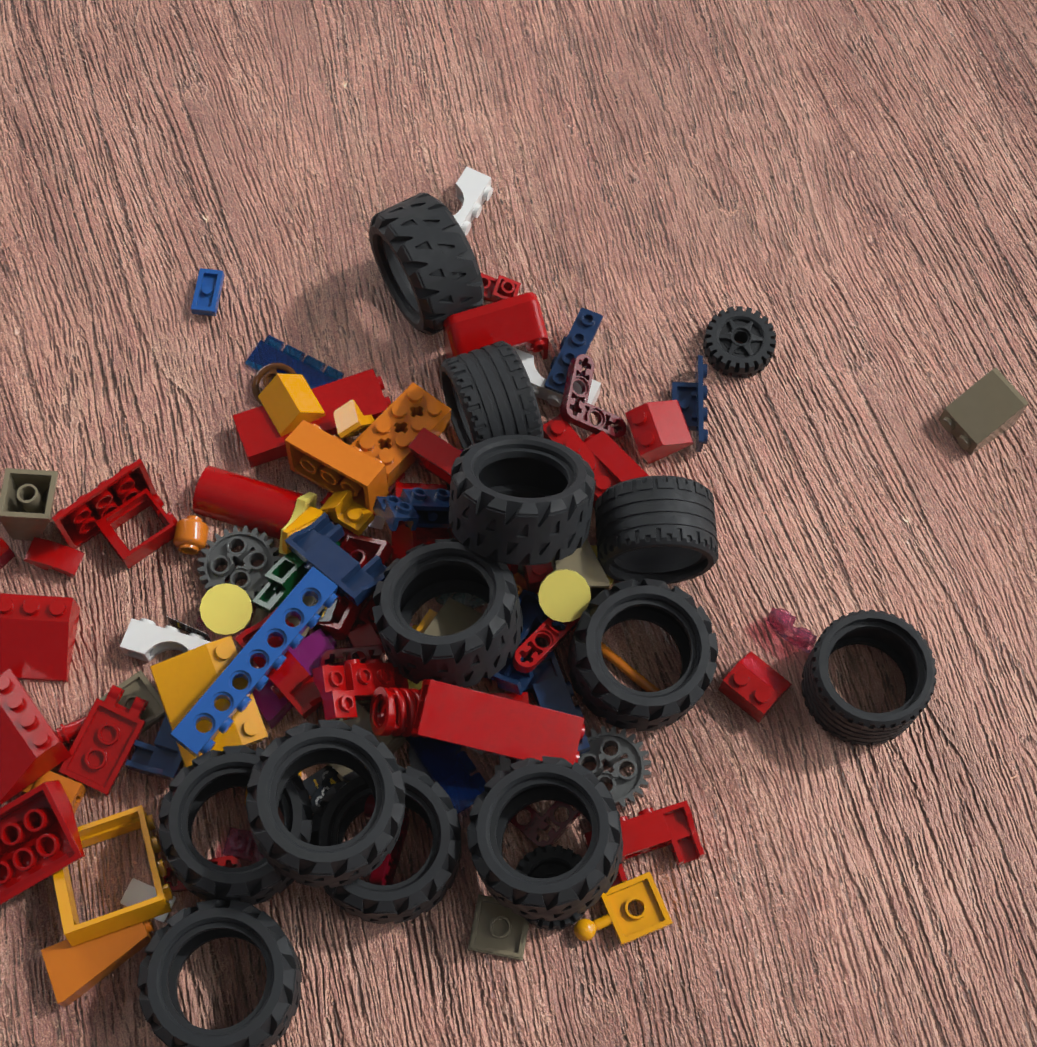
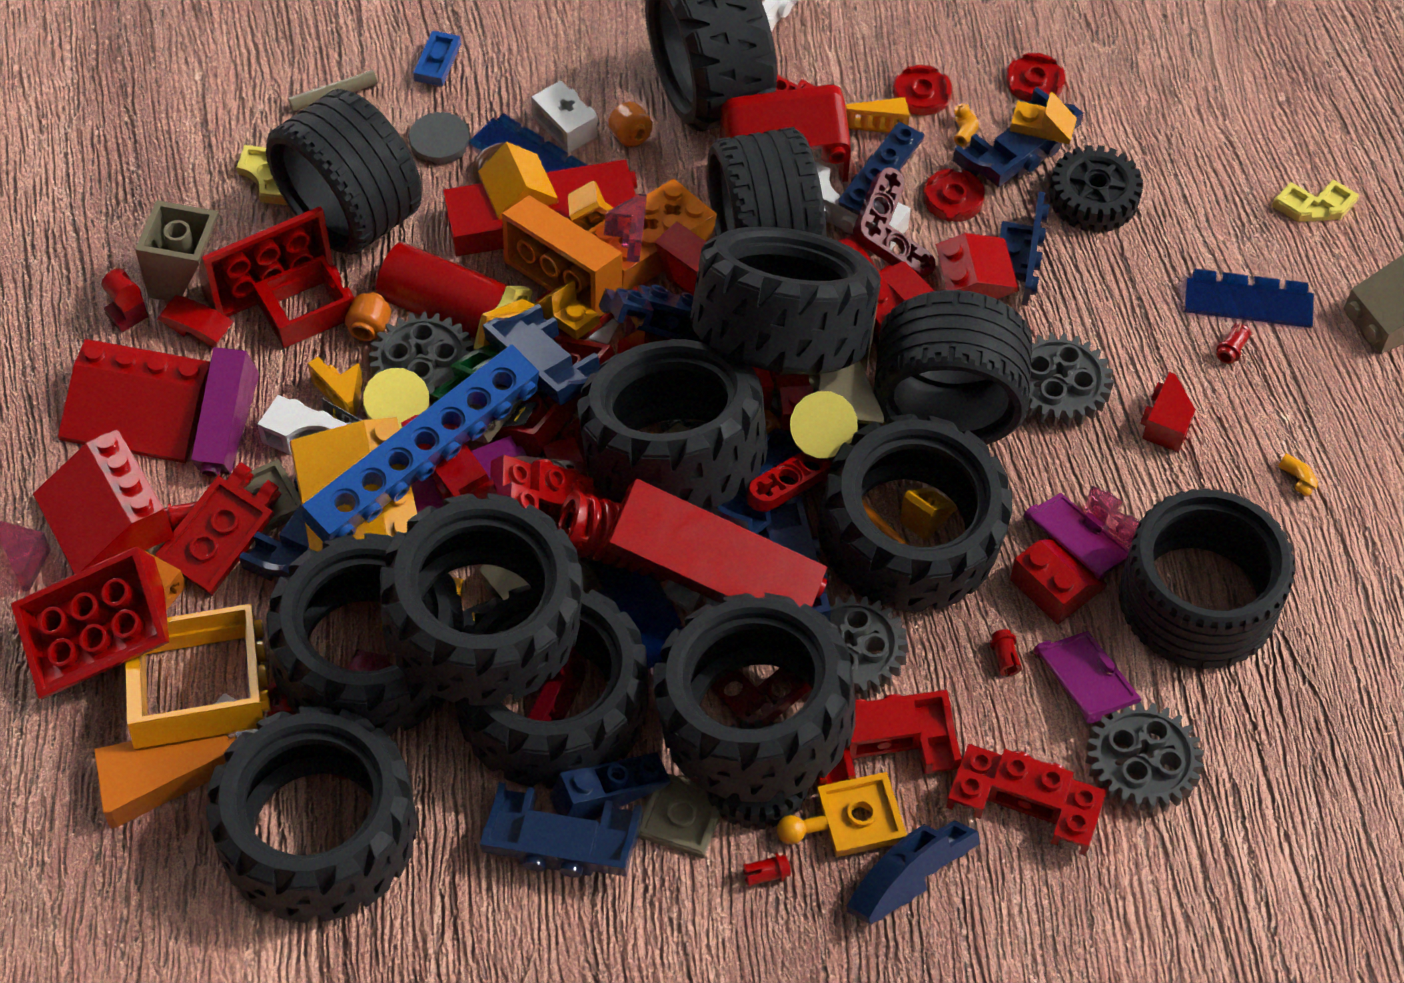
camera: 10 degrees right, 10 degrees down
(91, 638) = (224, 410): none -> magenta slope
(96, 423) = (254, 165): none -> light yellow tile
(128, 332) = (351, 84): none -> dark tan piece
(152, 418) = (350, 164): none -> black tyre
(181, 602) = (340, 389): none -> light orange slope
(220, 363) = (439, 138): none -> dark grey tile
(318, 332) = (565, 116): none -> white brick
(370, 333) = (628, 122): none -> orange head
(386, 434) = (628, 222): none -> clear pink slope
(412, 970) = (560, 841): none -> dark blue bracket
(442, 917) = (585, 790): none -> dark blue slope
(564, 299) = (877, 115): none -> light orange slope
(571, 965) = (768, 870): none -> red pin
(593, 270) = (924, 89): none -> red tile
(631, 361) = (953, 195): none -> red tile
(633, 296) = (967, 123): none -> light orange arm
(648, 642) = (925, 511): none -> slope
(674, 952) = (903, 869): none -> dark blue slope
(679, 247) = (1034, 71): none -> red tile
(681, 310) = (1012, 152): none -> dark blue bracket
(696, 294) = (1050, 122): none -> light orange slope
(724, 754) = (1004, 645): none -> red pin
(746, 531) = (1062, 370): none -> dark grey gear
(752, 638) = (1079, 534): none -> magenta door
(758, 867) = (1029, 788): none -> red bracket
(782, 761) = (1082, 671): none -> magenta door
(822, 533) = (1170, 416): none -> red slope
(851, 850) = (1144, 757): none -> dark grey gear
(859, 467) = (1230, 349): none -> red pin
(874, 424) = (1254, 302): none -> clear blue windscreen
(900, 335) = (1305, 207): none -> light yellow tile
(926, 568) = (1302, 471): none -> light orange arm

